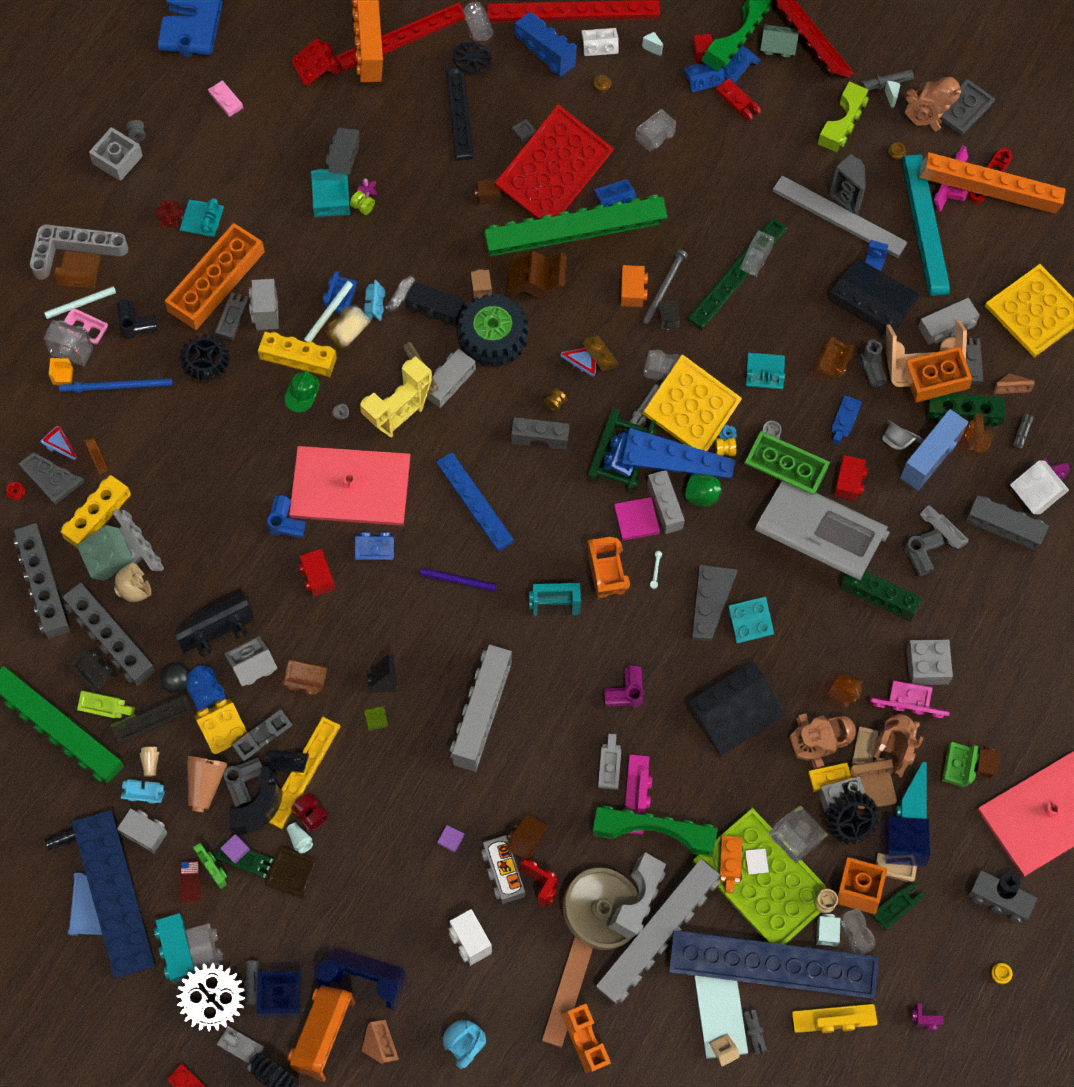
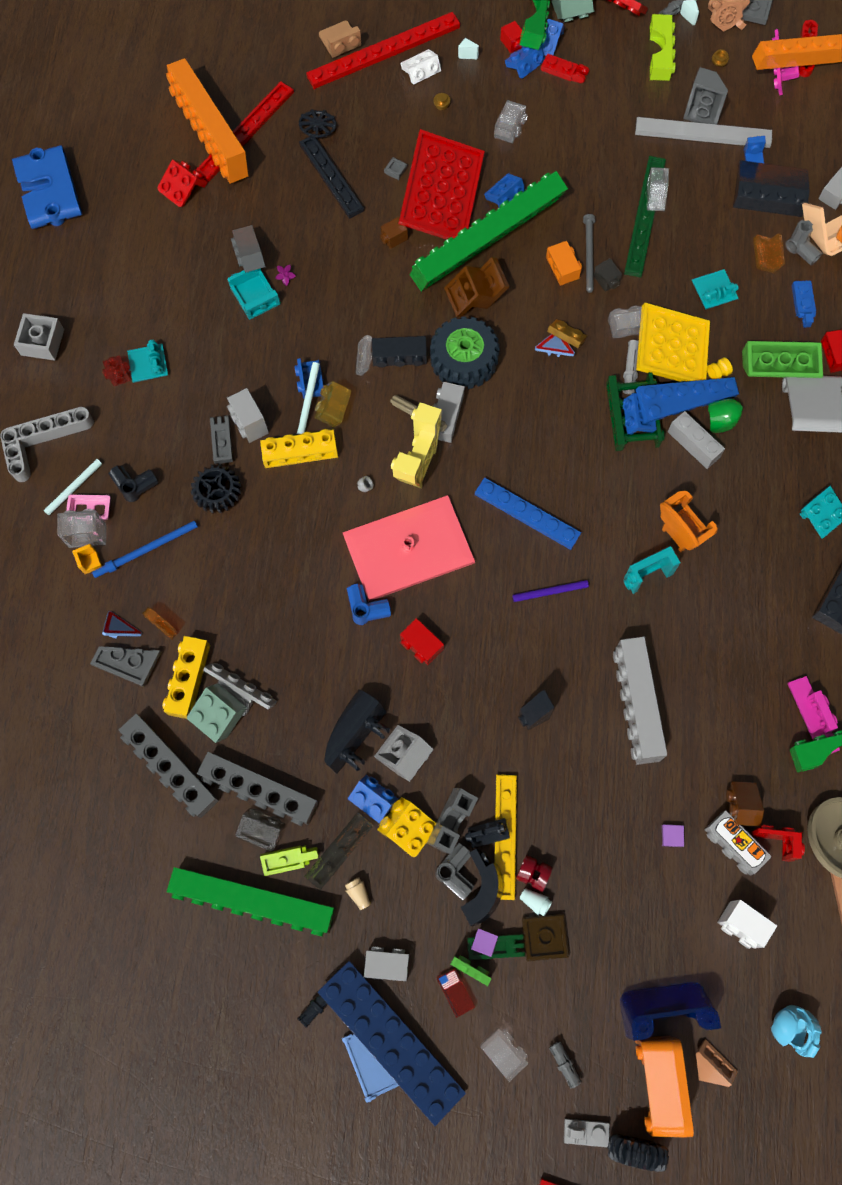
camera: 20 degrees left, 5 degrees up
(15, 486) = (94, 690): red plate -> none
(78, 269) = (56, 457): clear orange bracket -> none
(131, 584) = (255, 731): tan cylinder -> none
(136, 130) = (46, 308): dark grey wheel -> none
(151, 793) = (360, 930): medium azure hinge -> none
(174, 677) = (341, 802): pearl dark grey hair -> none
(174, 947) = (477, 1068): teal brick -> none
(196, 1009) = (528, 1120): gear -> none
(203, 781) = (420, 890): nougat cone -> none
(214, 276) = (187, 410): orange brick -> none
(225, 98) = (114, 247): bright pink plate -> none
(279, 994) = (600, 1066): clear blue brick -> none
(302, 392) = (320, 482): green piece -> none
(305, 676) = (462, 745): clear orange bracket -> none
(362, 202) = (287, 288): lime wheel -> none
(374, 546) = (461, 594): blue bracket -> none
(375, 294) = (341, 365): medium azure hinge -> none
(376, 718) = (545, 753): clear neon green tile -> none
(478, 21) = (307, 90): clear piece -> none
(481, 283) = (430, 316): medium nougat brick -> none
(530, 430) = (567, 422): dark grey arch -> none
(546, 44) = (377, 85): blue wedge -> none
(555, 399) = (550, 391): pearl gold wheel -> none
(610, 764) = (776, 699): light grey hinge -> none
(633, 685) = (754, 632): magenta piece -> none
(636, 519) = (677, 466): dark pink tile -> none
(654, 584) = (722, 518): light aqua hinge -> none
(711, 596) = (779, 508): dark grey wing -> none
(725, 429) = (716, 353): dark azure plate -> none
(772, 428) = (751, 335): light grey wheel -> none
(925, 227) = (779, 110): teal beam -> none

